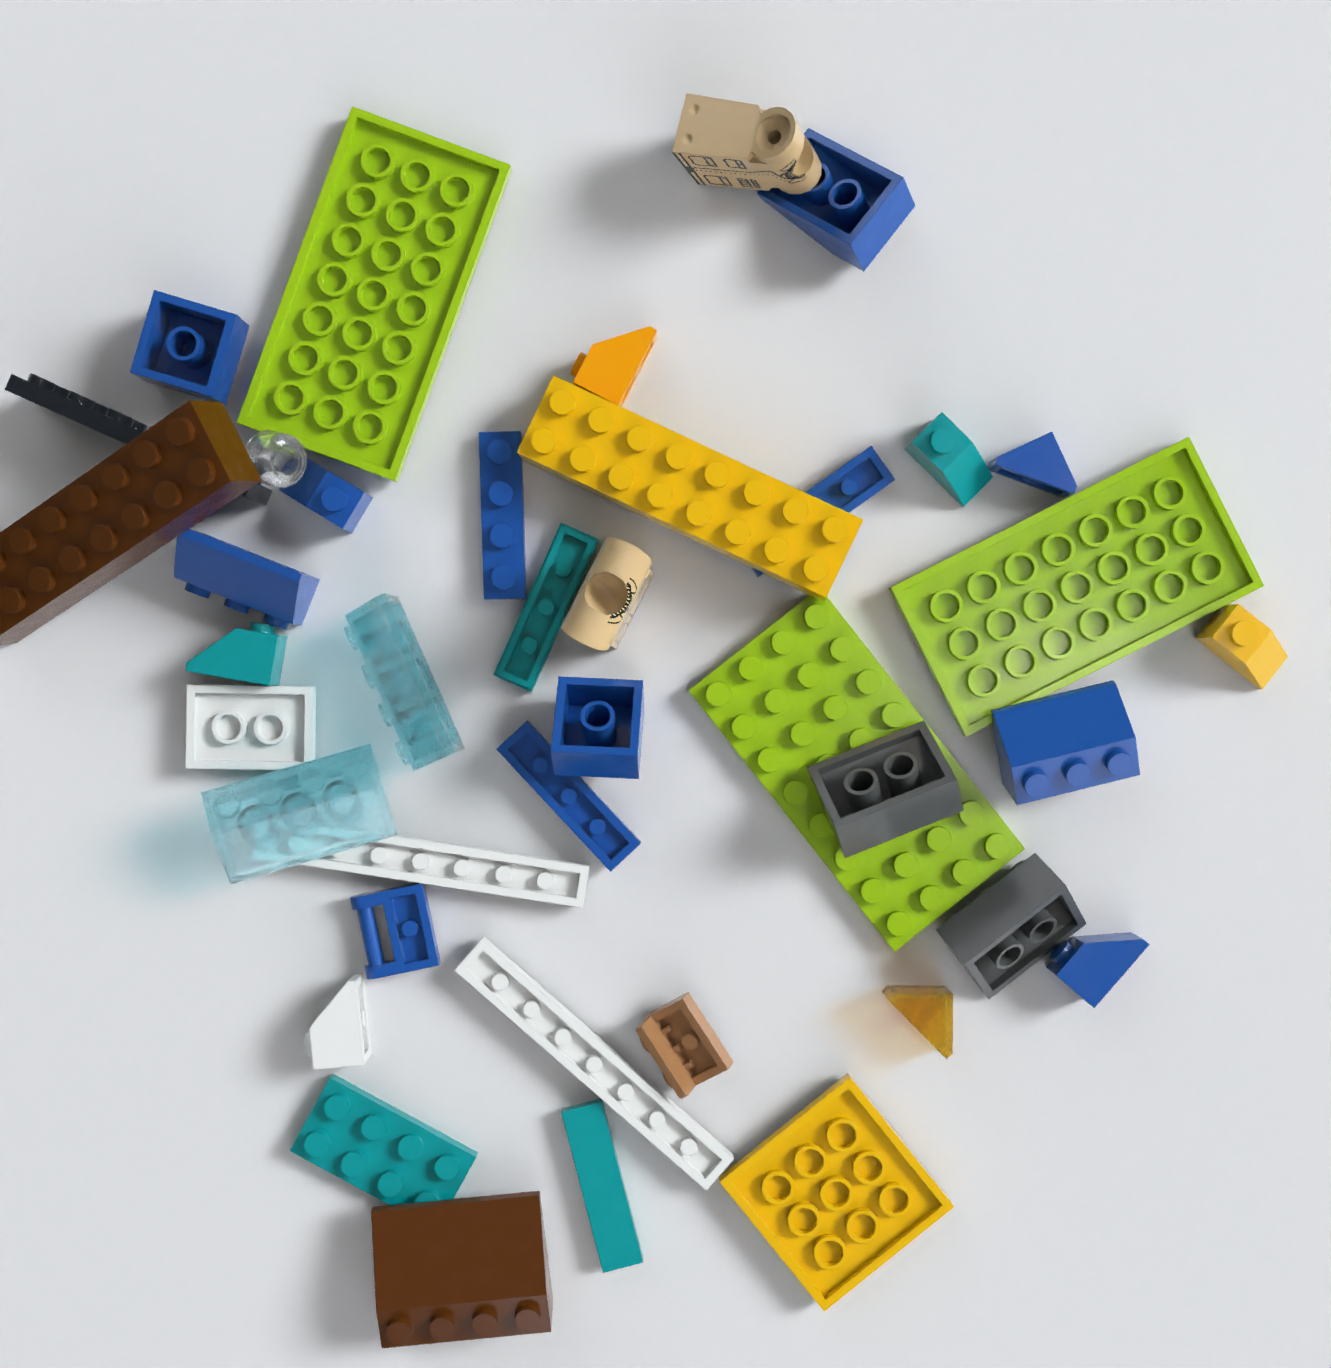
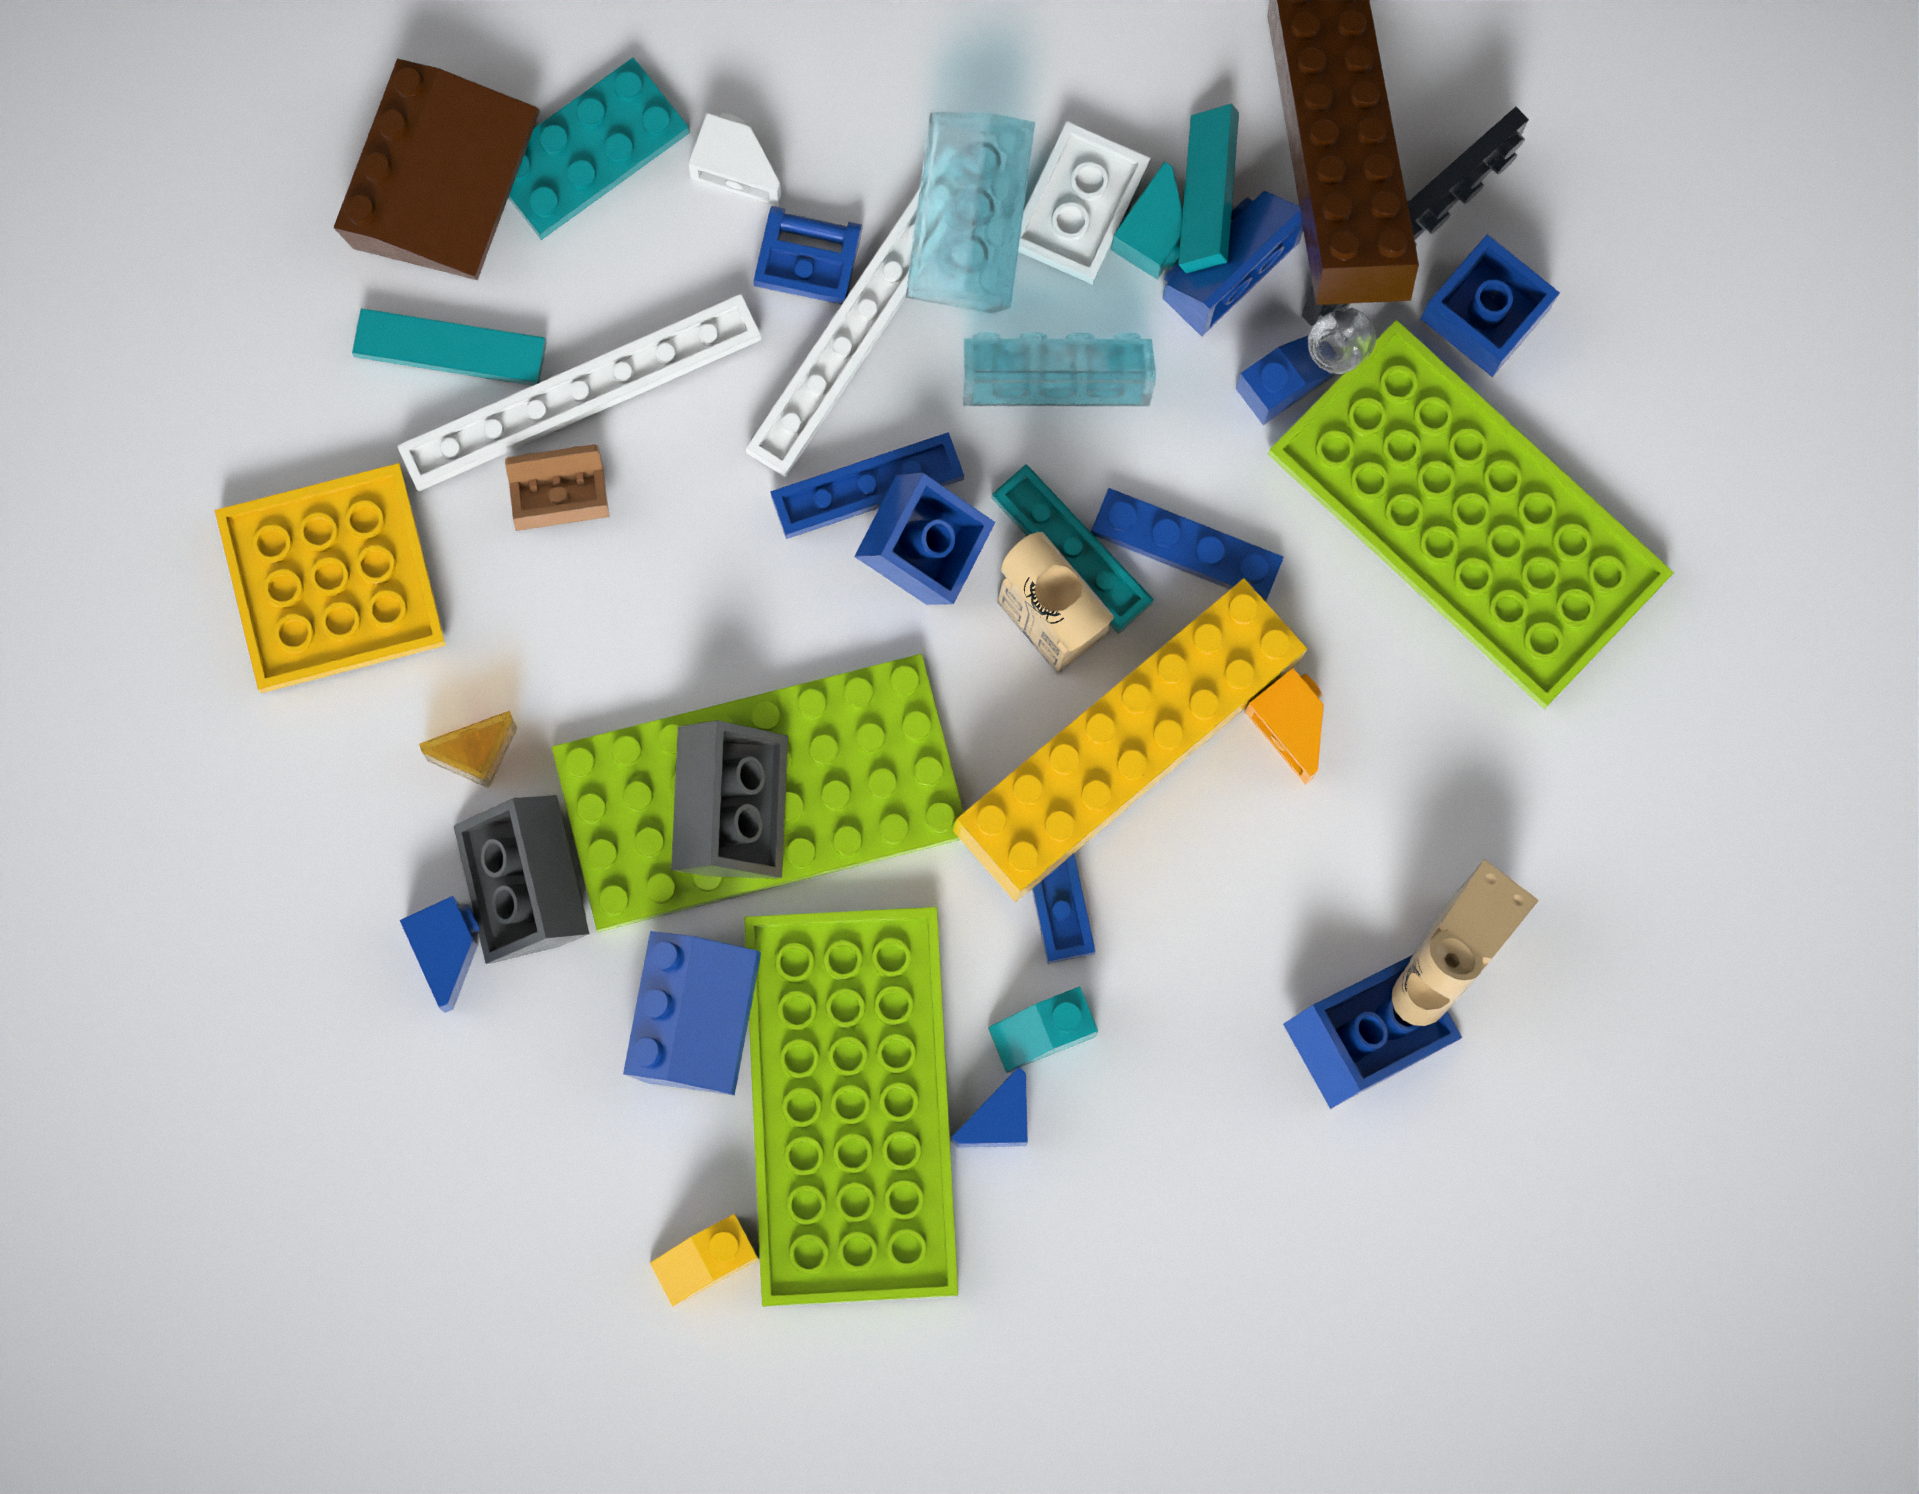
camera: 110 degrees right, 10 degrees down
(193, 623) = (1209, 188): none -> teal tile

